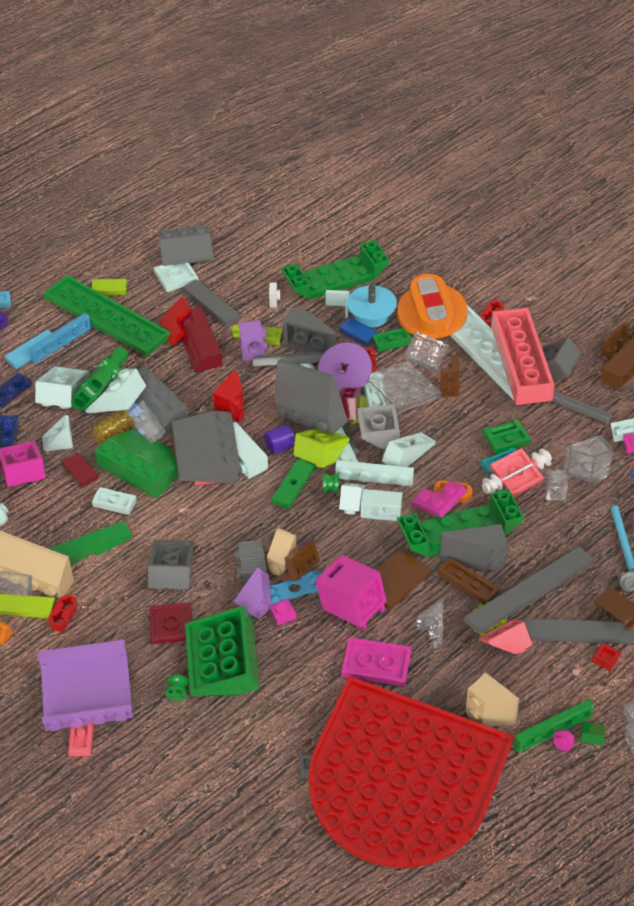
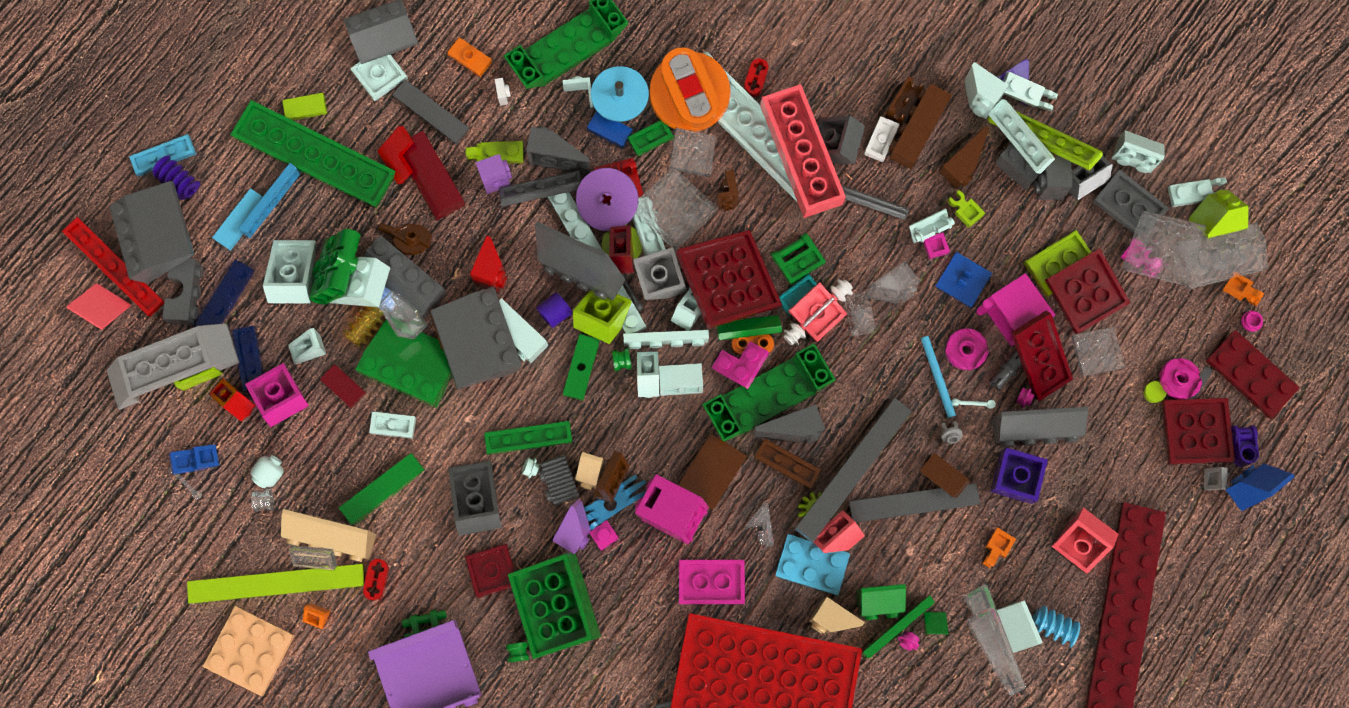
camera: 15 degrees left, 30 degrees up
(169, 377) = (409, 238): none -> reddish brown piece
(228, 548) = (530, 467): none -> light aqua plate
(232, 527) = (528, 437): none -> green plate
(253, 273) = (469, 57): none -> orange plate
(440, 435) = (728, 278): none -> dark red plate
(451, 476) = (749, 327): none -> green tile
(471, 660) = (809, 566): none -> medium azure plate
(540, 695) = (881, 601): none -> slope
(591, 368) = (881, 139): none -> white plate
(606, 657) = (938, 530): red tile -> none

